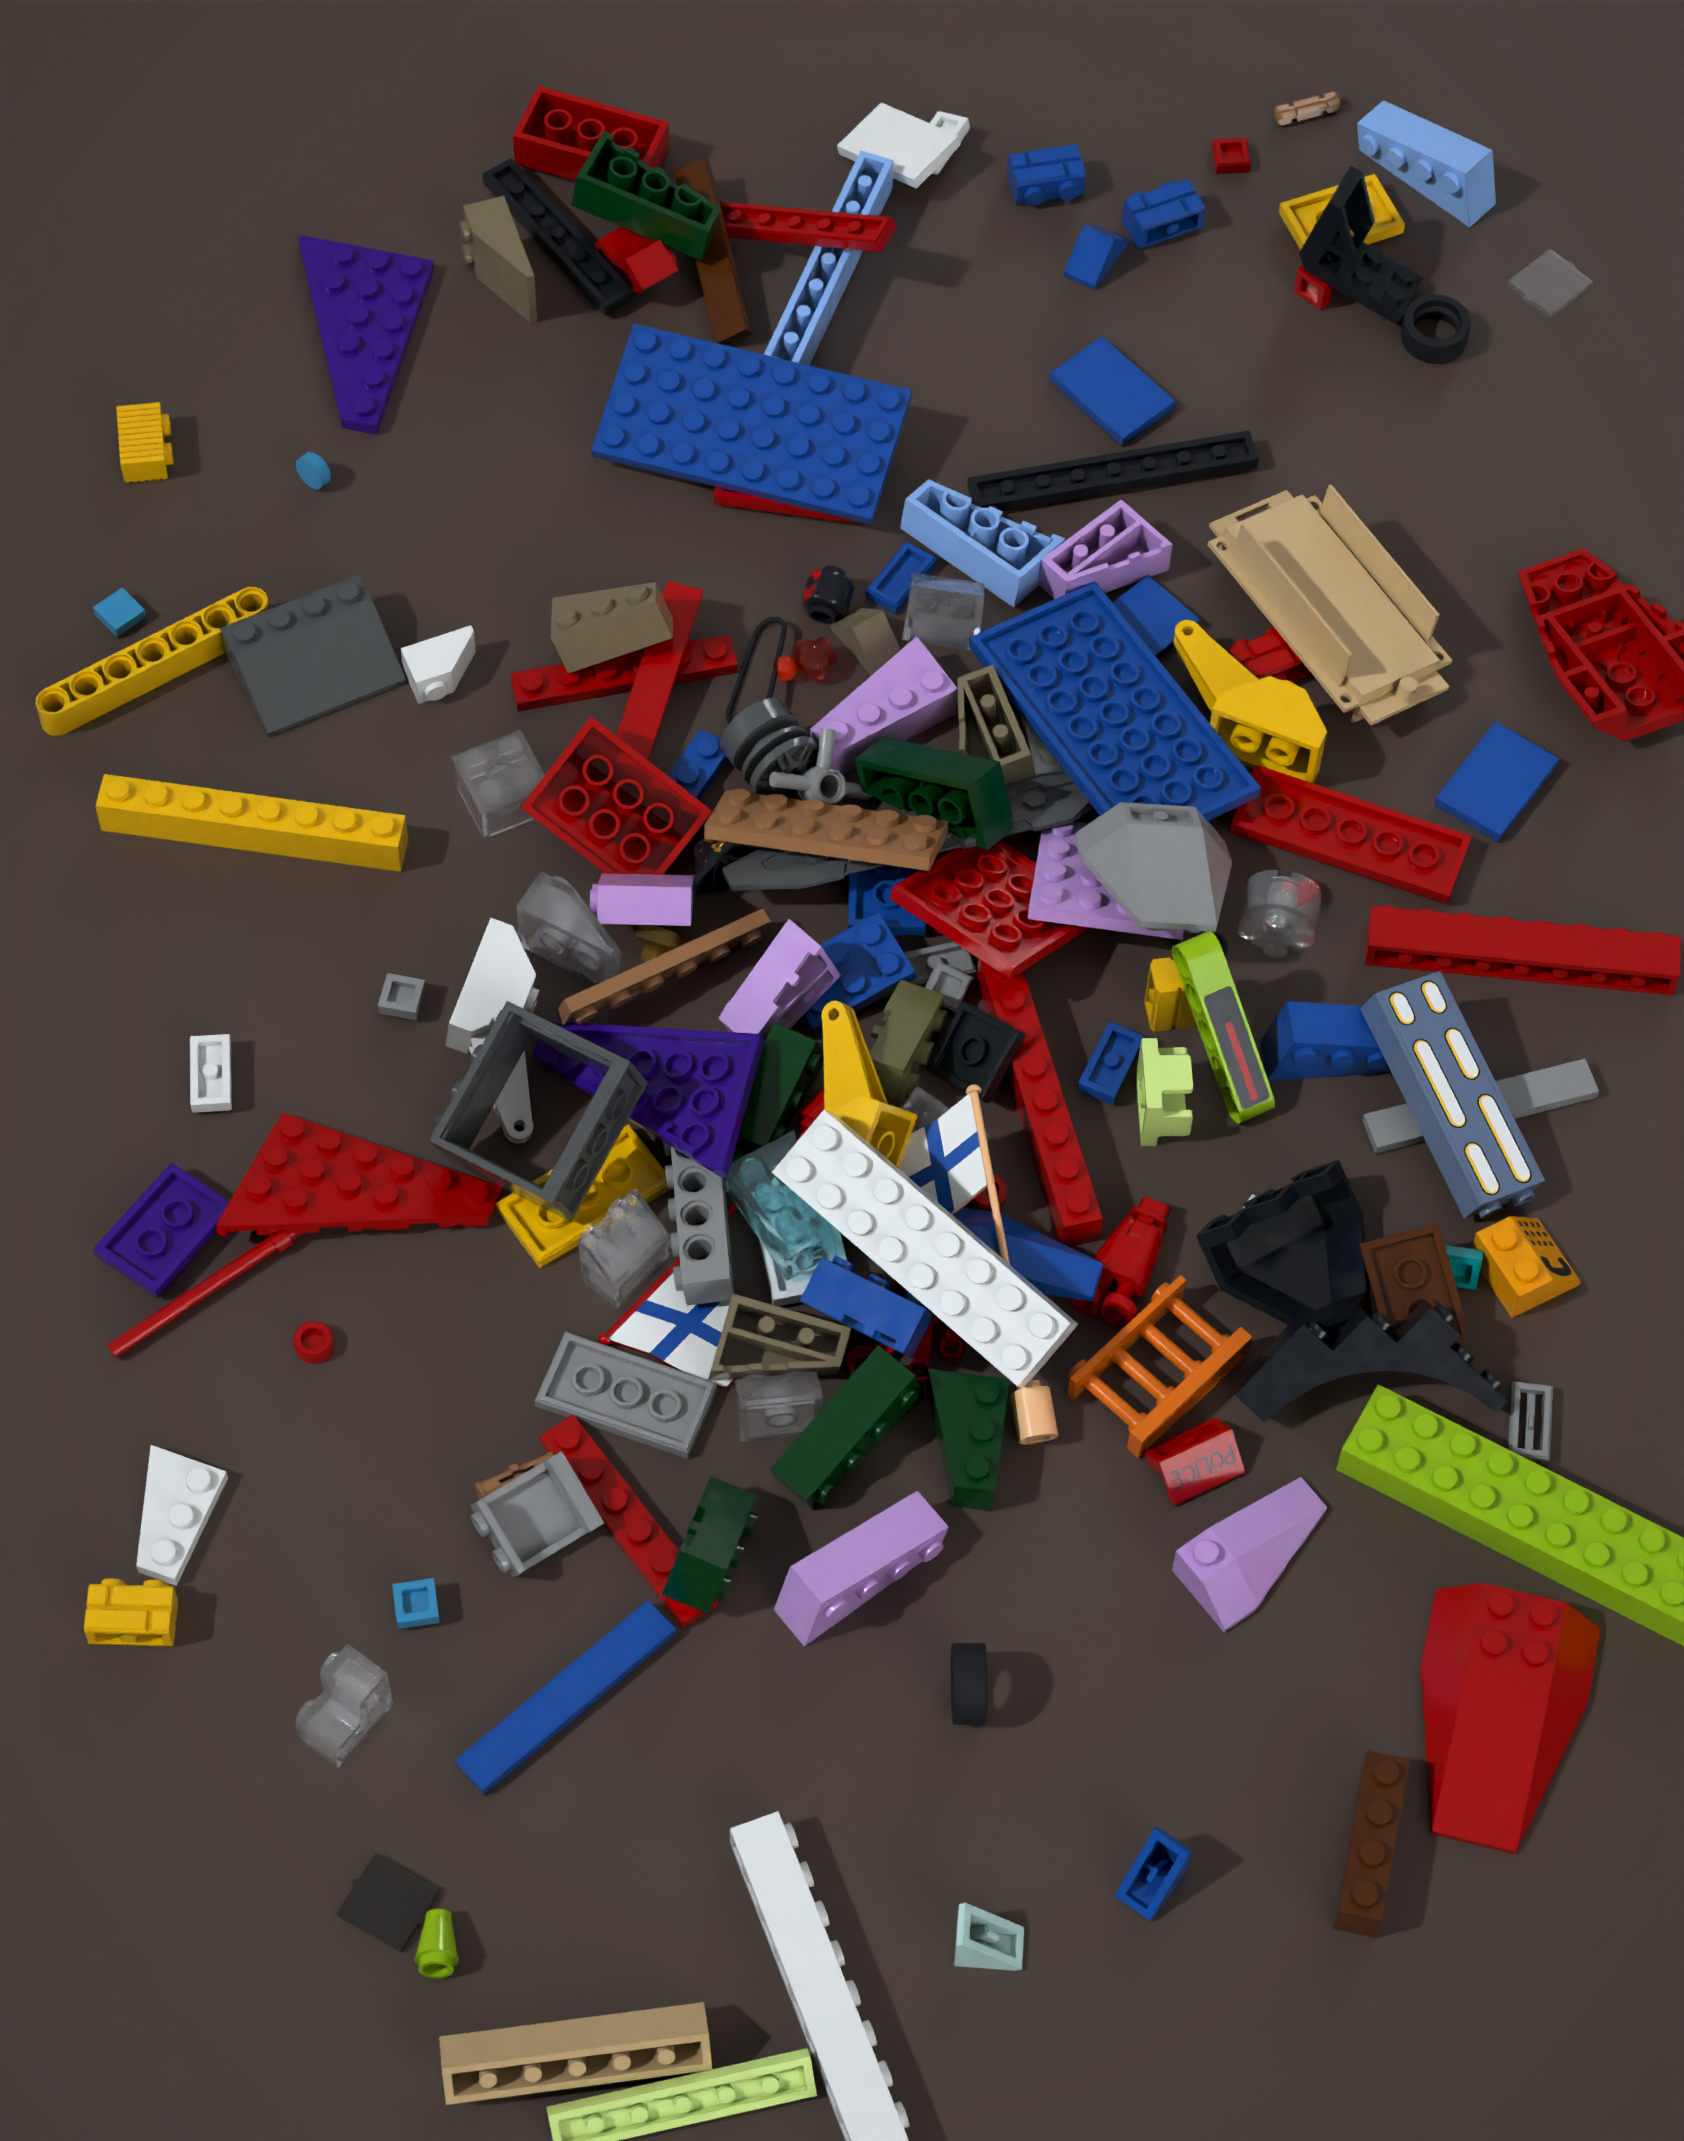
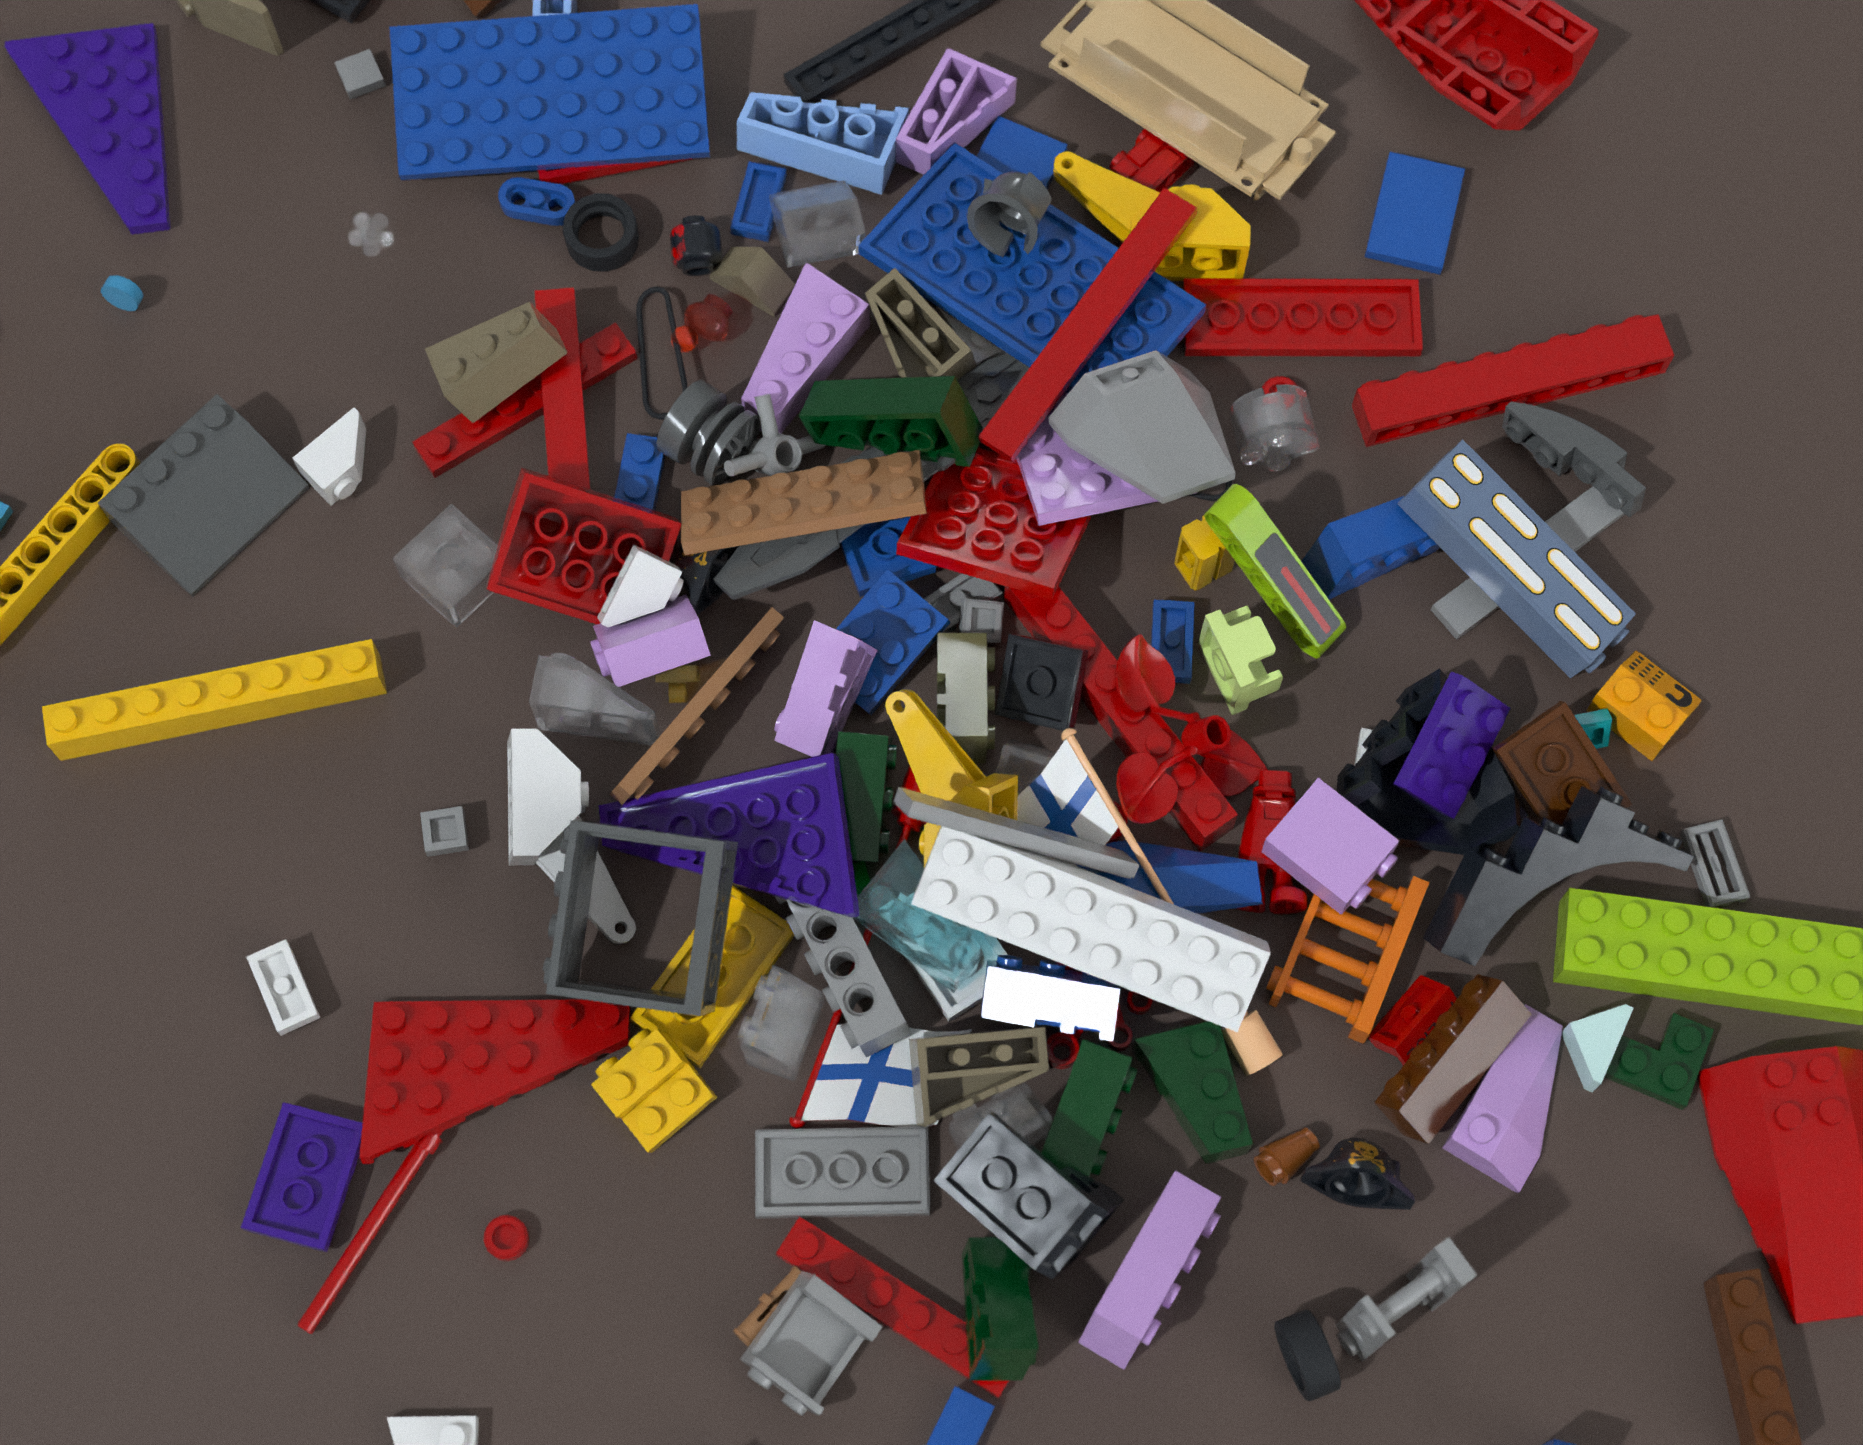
camera: 20 degrees left, 10 degrees up
(490, 1264) = (652, 1088): none -> yellow plate
(547, 492) = (371, 233): none -> clear plant
(595, 359) = (360, 74): none -> light grey tile
(655, 852) = (640, 588): none -> white slope
(706, 514) = (539, 200): none -> blue plate
(749, 534) = (592, 207): none -> black tyre
(775, 1461) = (1026, 1198): none -> bracket
(889, 1148) = (1015, 833): none -> light grey tile
(1023, 1521) = (1284, 1157): none -> dark orange cone
(1024, 1161) = (1143, 787): none -> red plant
(1069, 1656) = (1431, 1283): none -> light grey fence
(1081, 1559) = (1360, 1176): none -> black hat
(1118, 639) = (1013, 200): none -> dark grey helmet
(1143, 765) = (1087, 325): none -> red tile
(1172, 1271) = (1331, 847): none -> lavender brick
(1209, 1490) = (1452, 1058): none -> brick
(1321, 1227) = (1452, 745): none -> dark purple plate
(1351, 1525) = (1594, 1042): none -> light aqua slope
(1402, 1579) = (1665, 1072): none -> dark green plate
(1552, 1022) = (1566, 443): none -> dark grey slope

